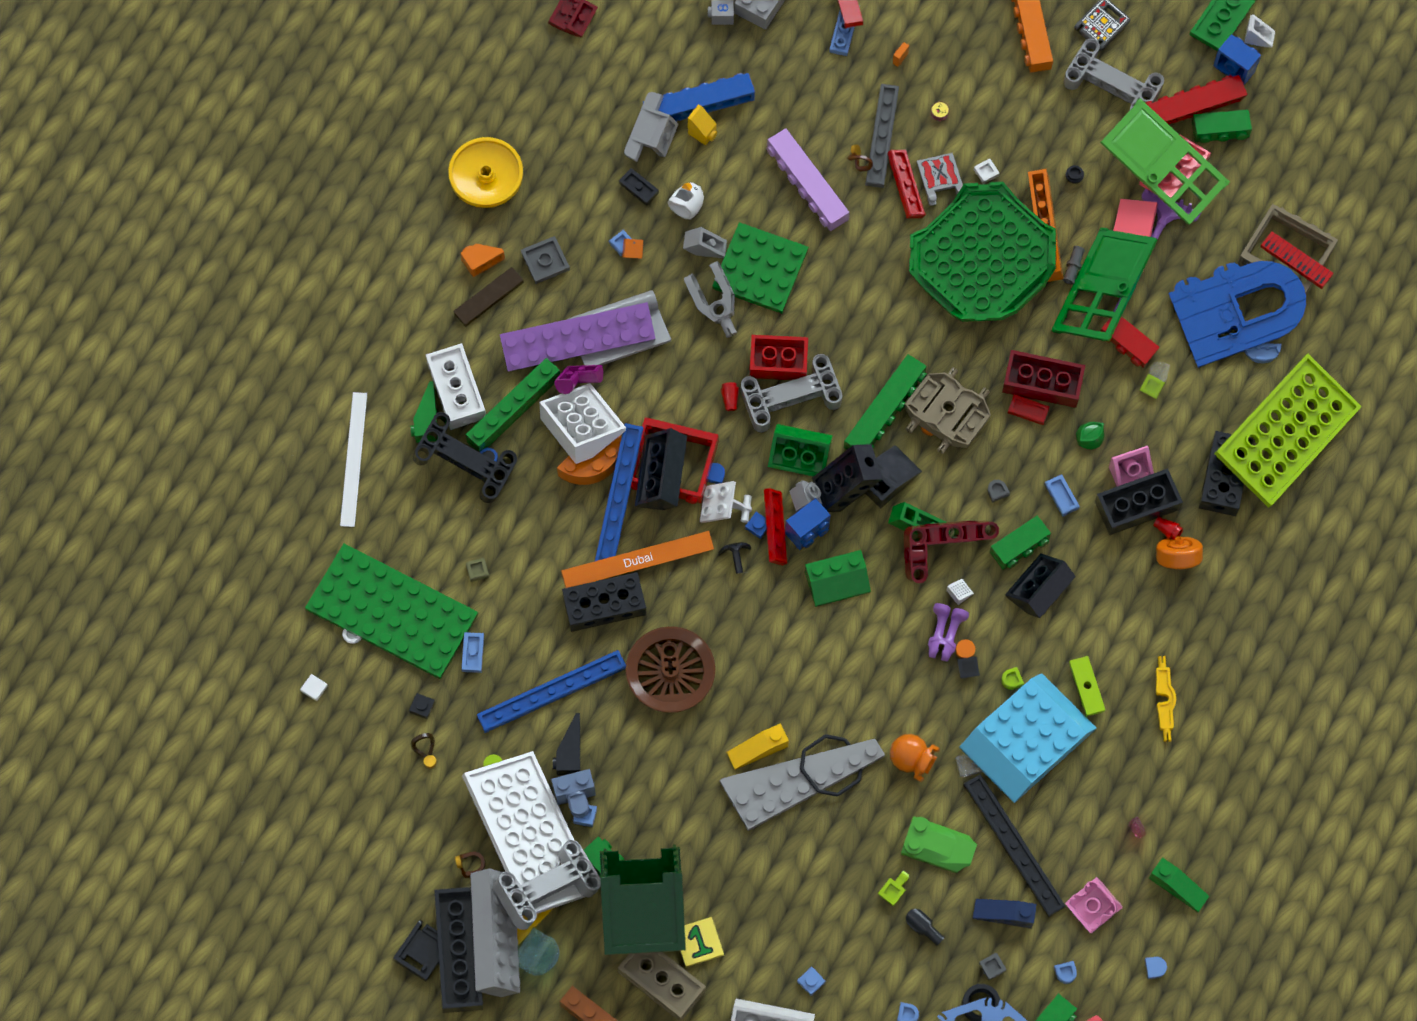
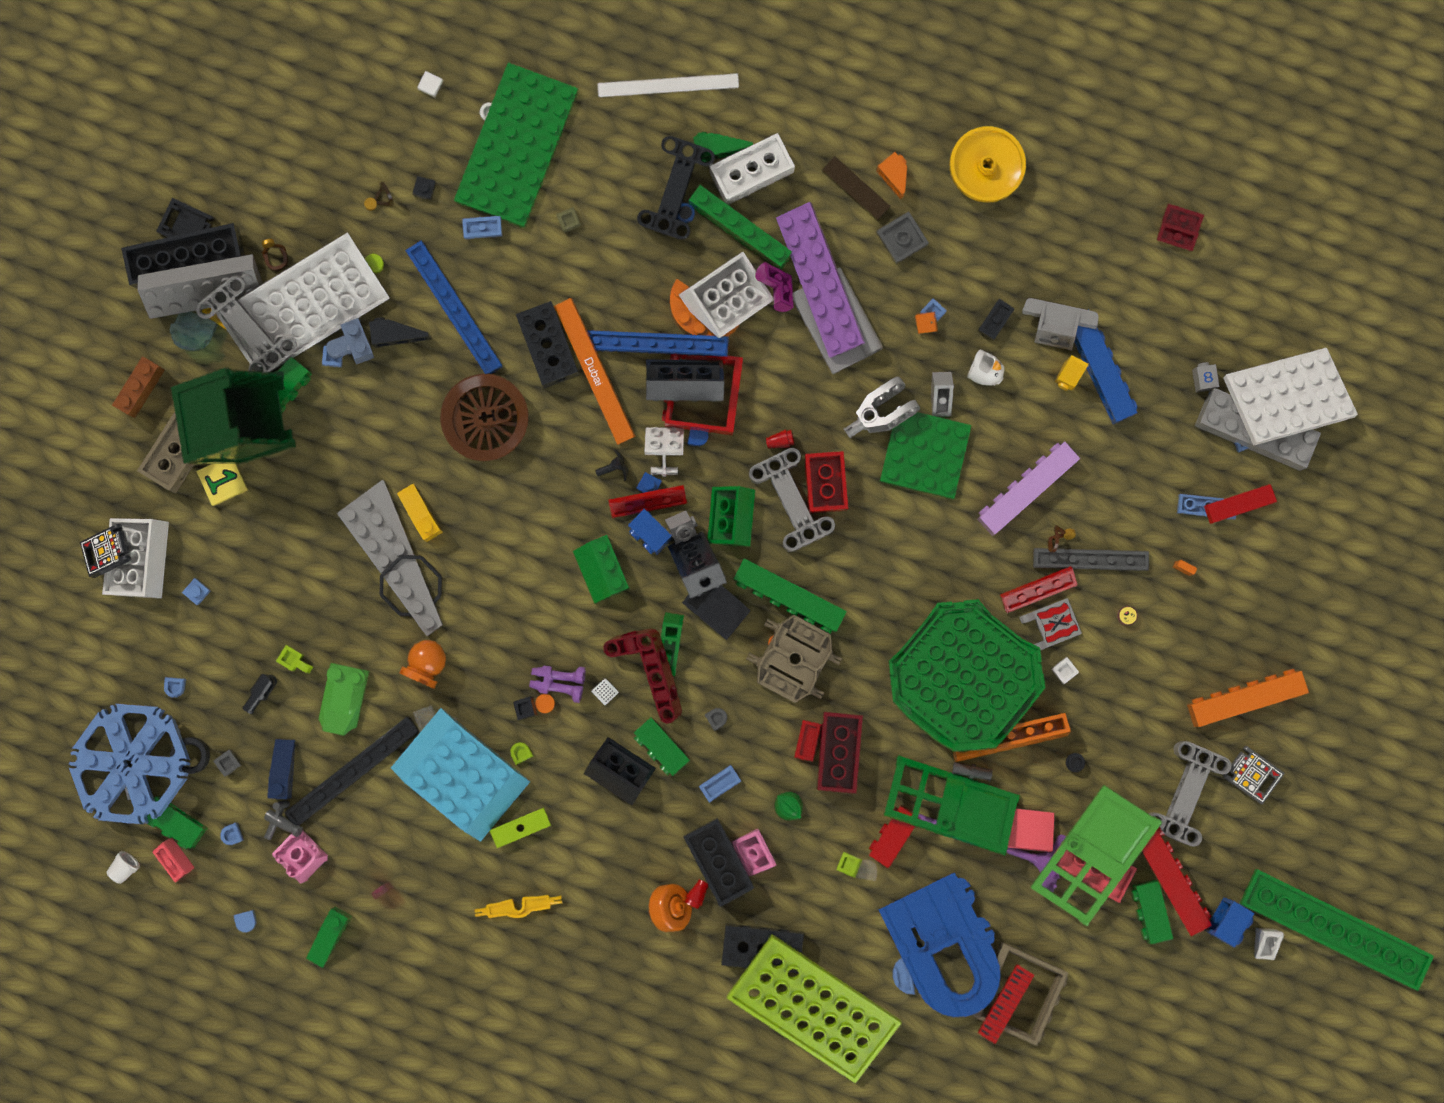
camera: 80 degrees right, 15 degrees up
(1055, 923) = (277, 820): none -> dark grey piece

